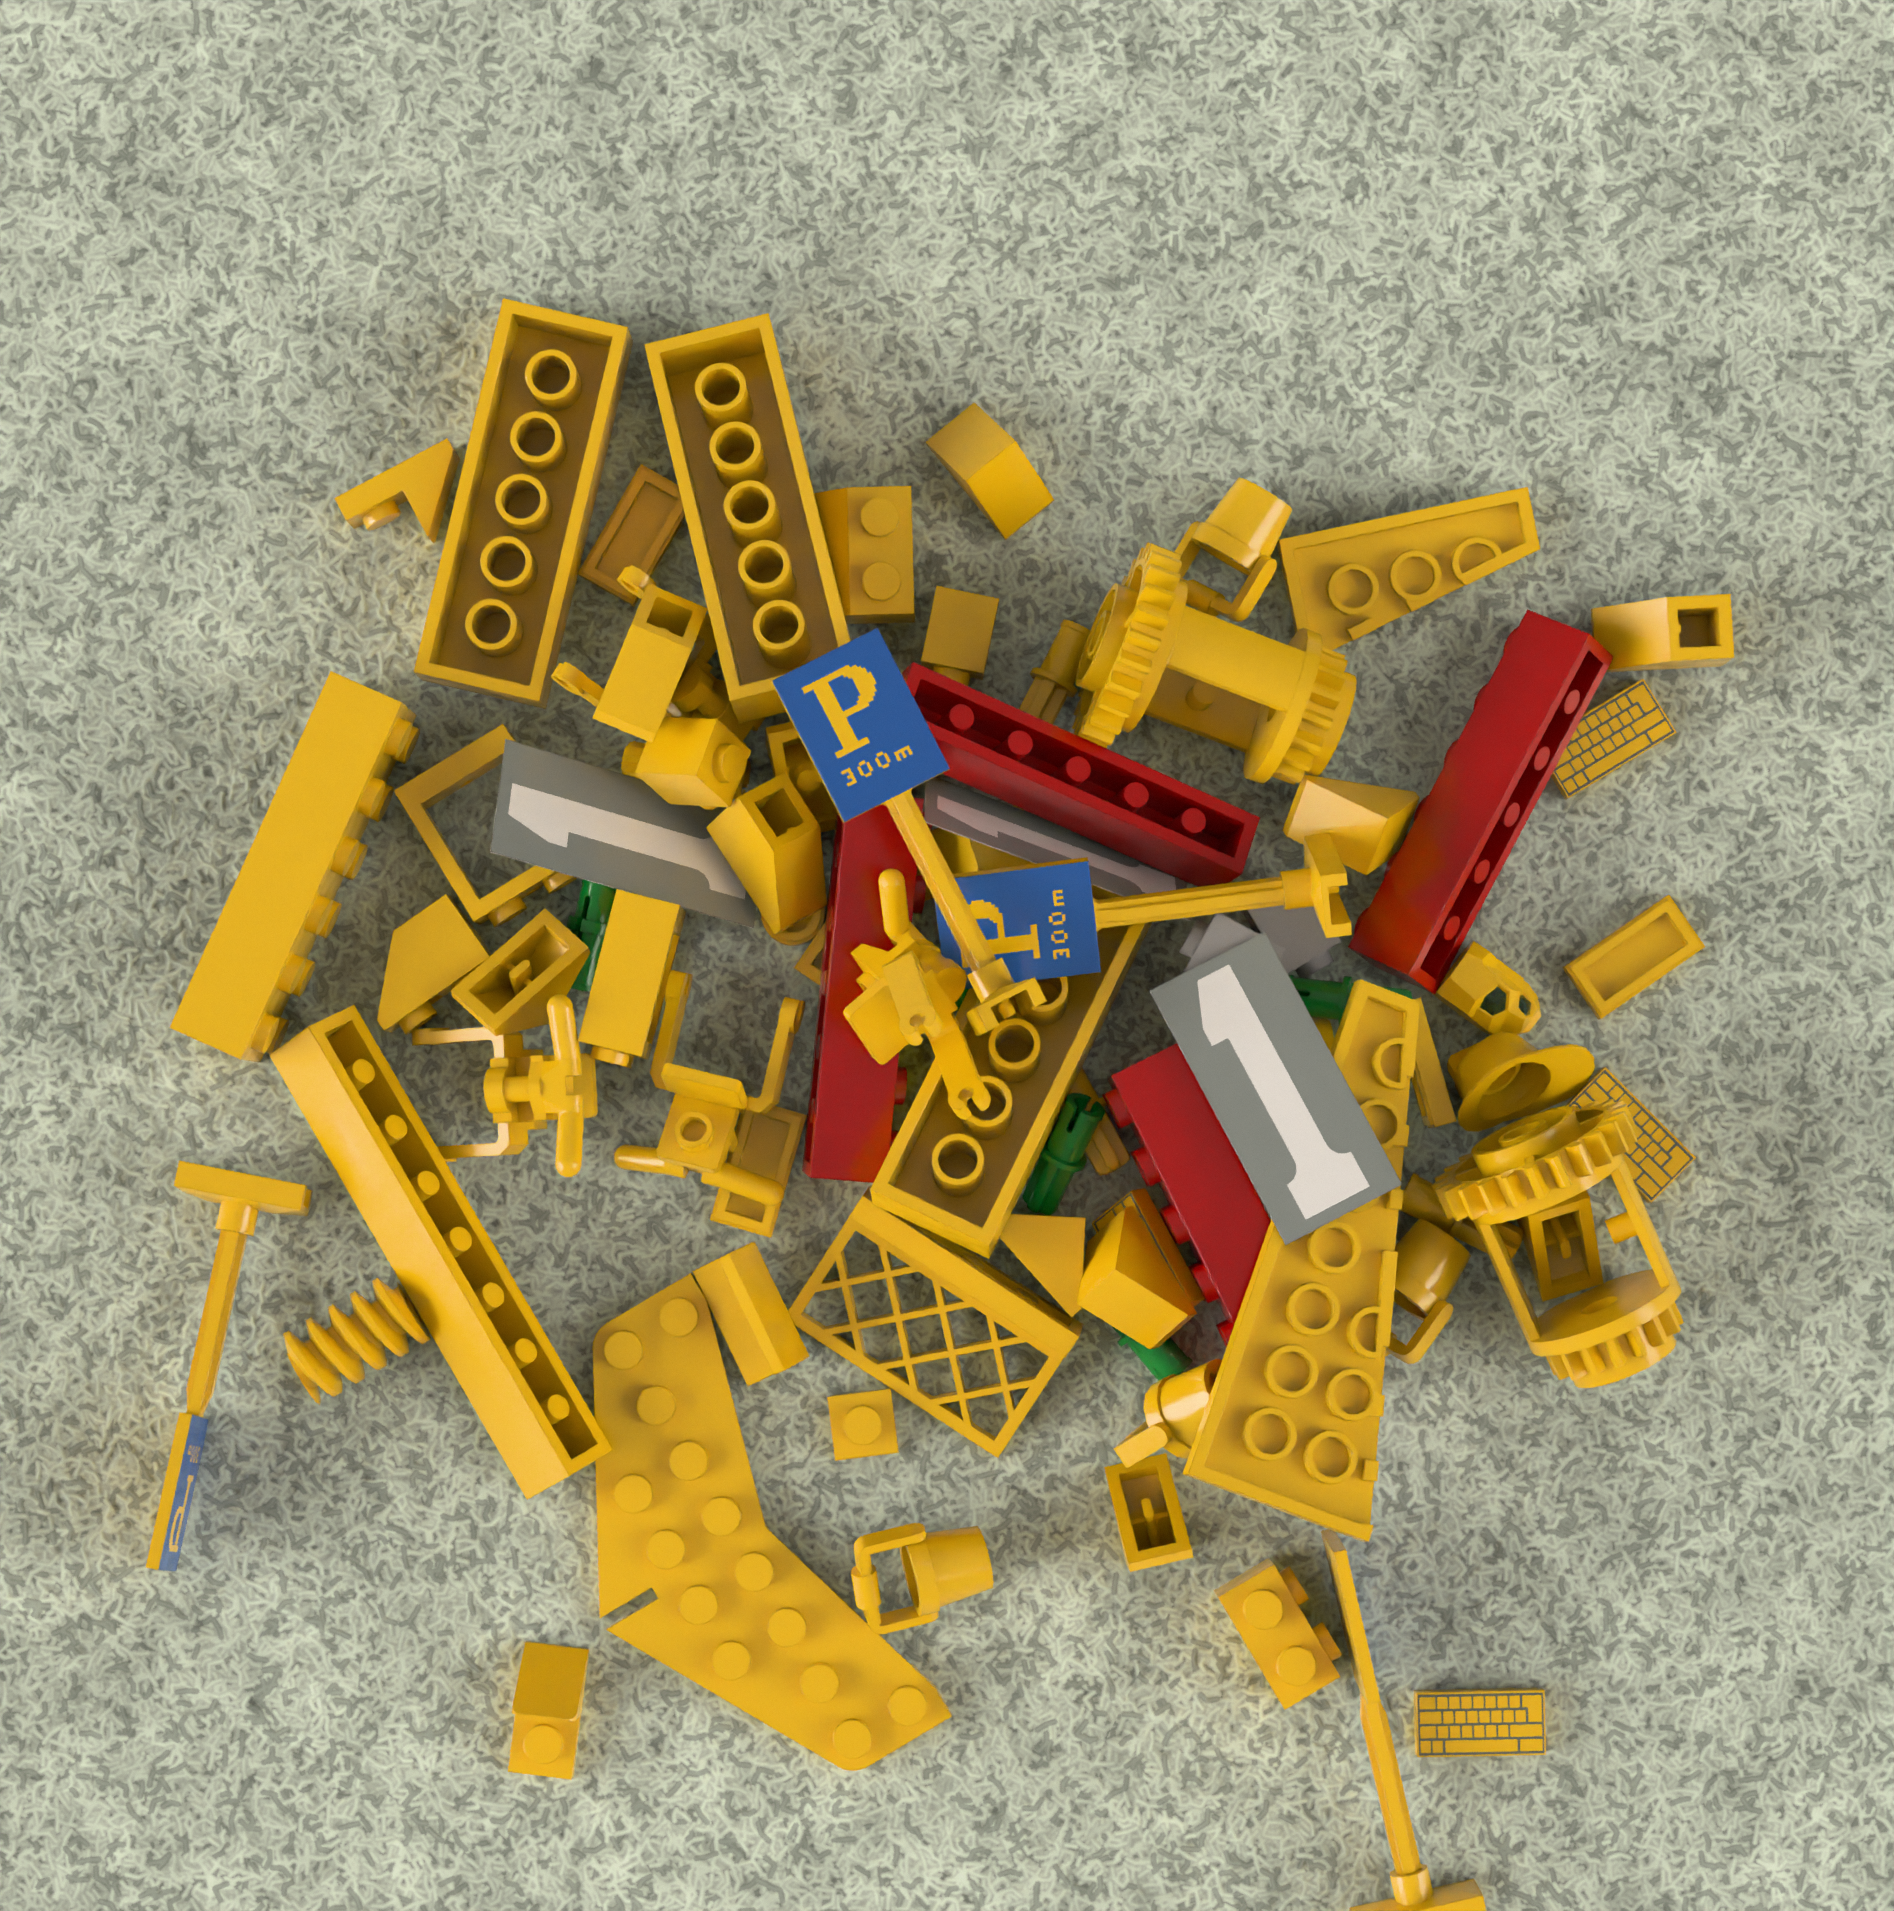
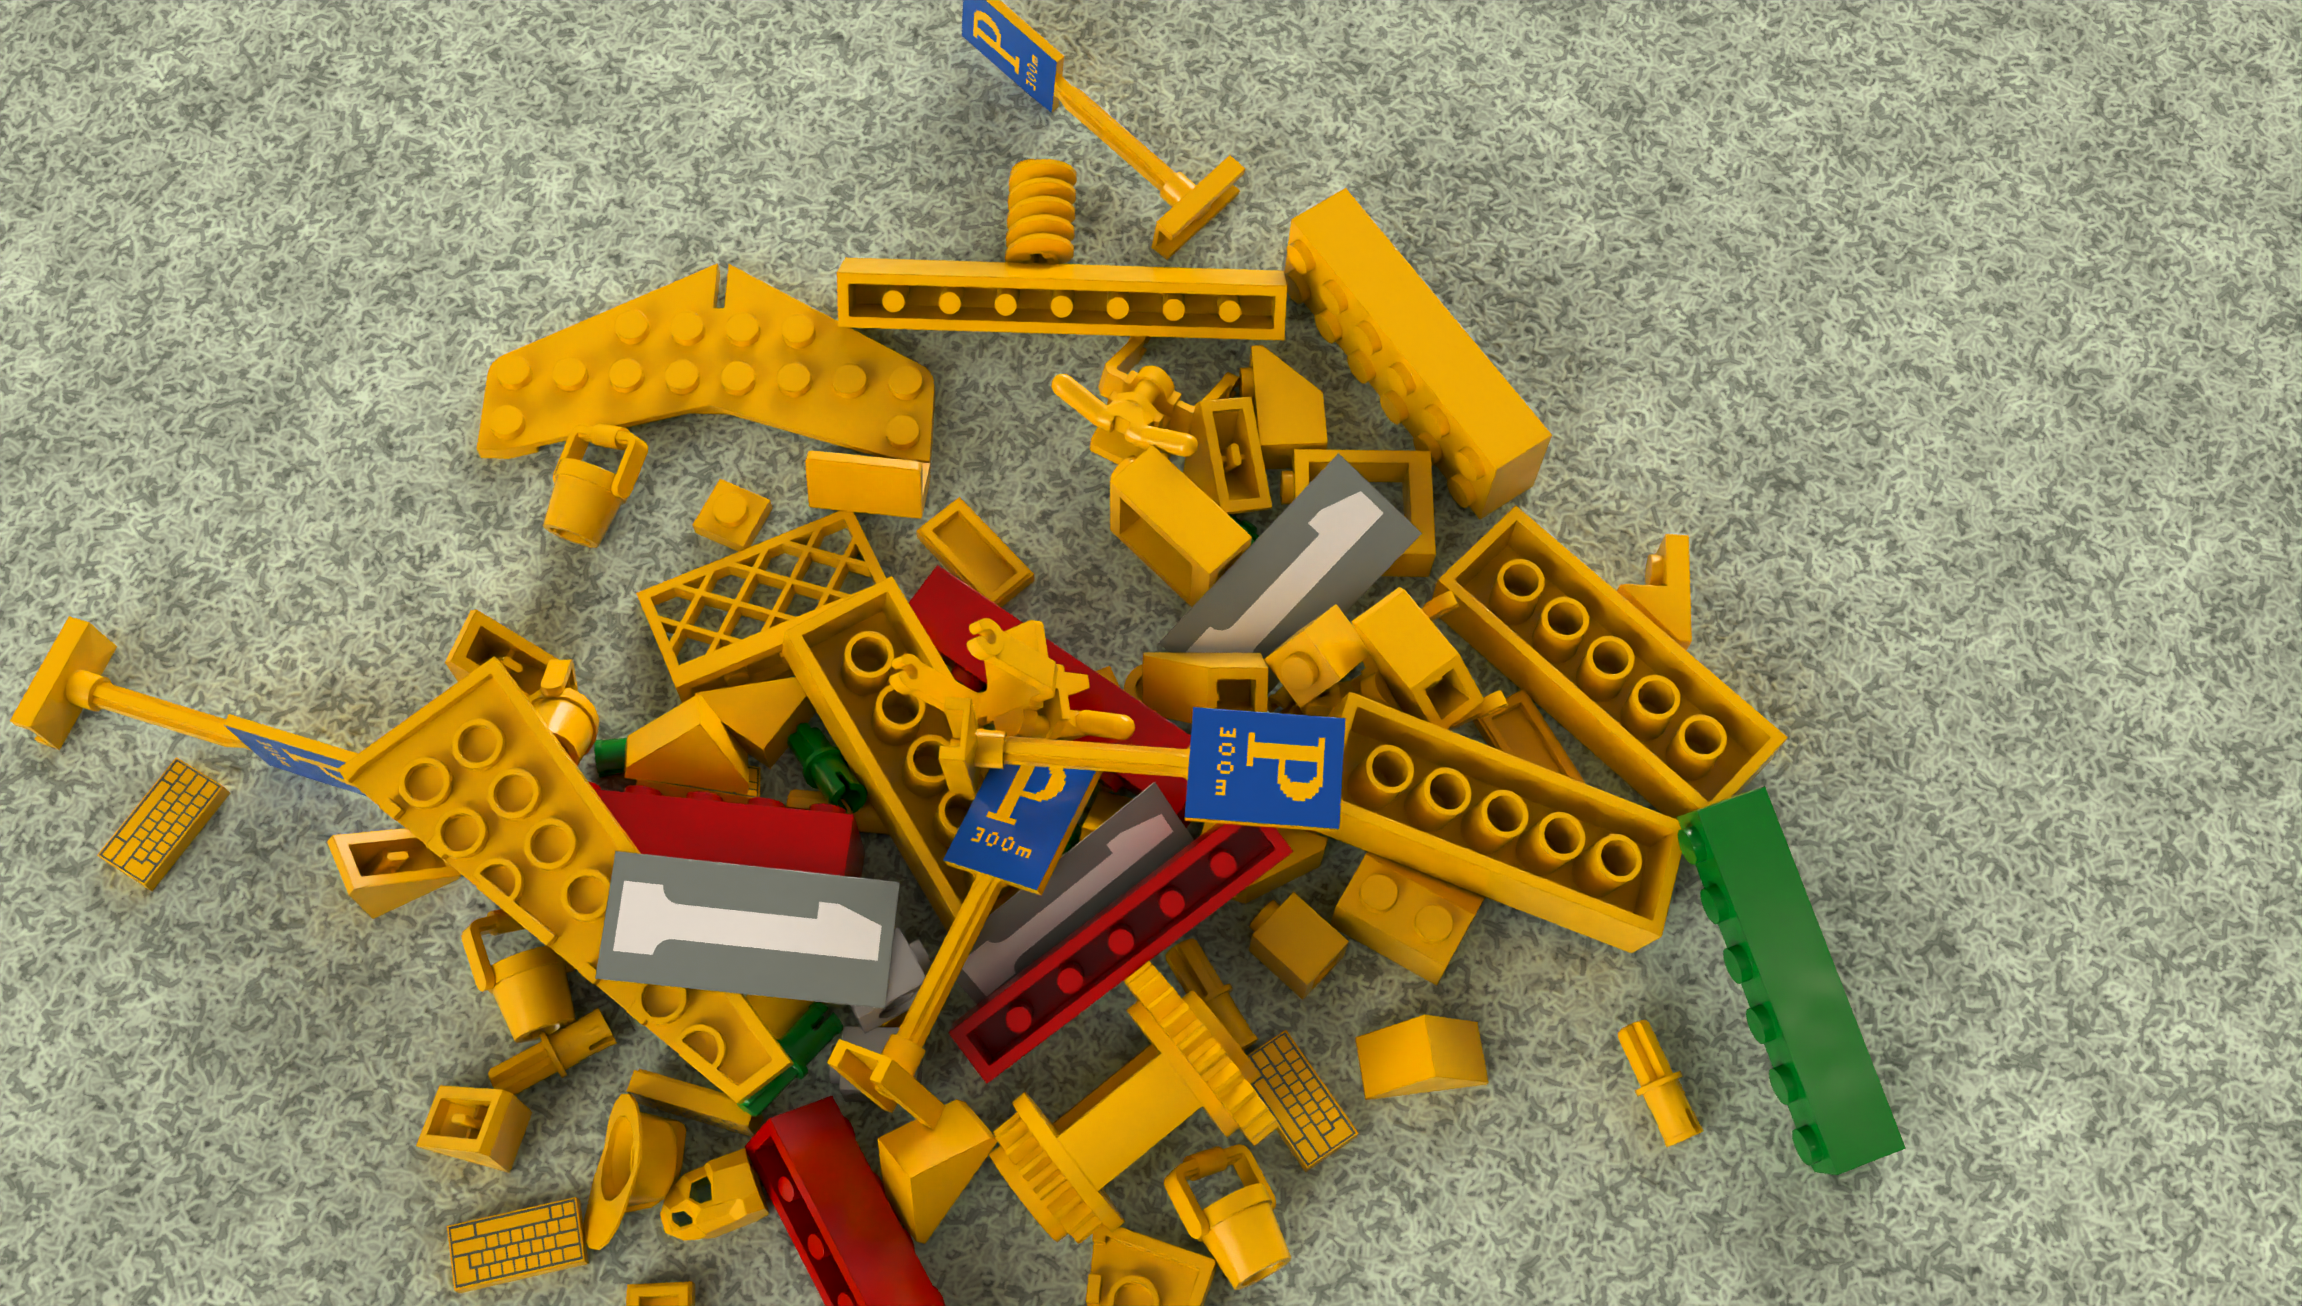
camera: 120 degrees right, 20 degrees down
(548, 1710) = (693, 199): yellow slope -> none
(708, 1105) = (1044, 527): yellow piece -> none
(736, 187) = (1789, 983): none -> green brick
(887, 253) = (1659, 1083): none -> yellow axle
(1094, 556) = (1300, 1101): none -> yellow tile
(1277, 1633) = (344, 702): yellow brick -> none
(1406, 1486) = (388, 868): none -> yellow slope
(1539, 1164) = (530, 1129): yellow piece -> none

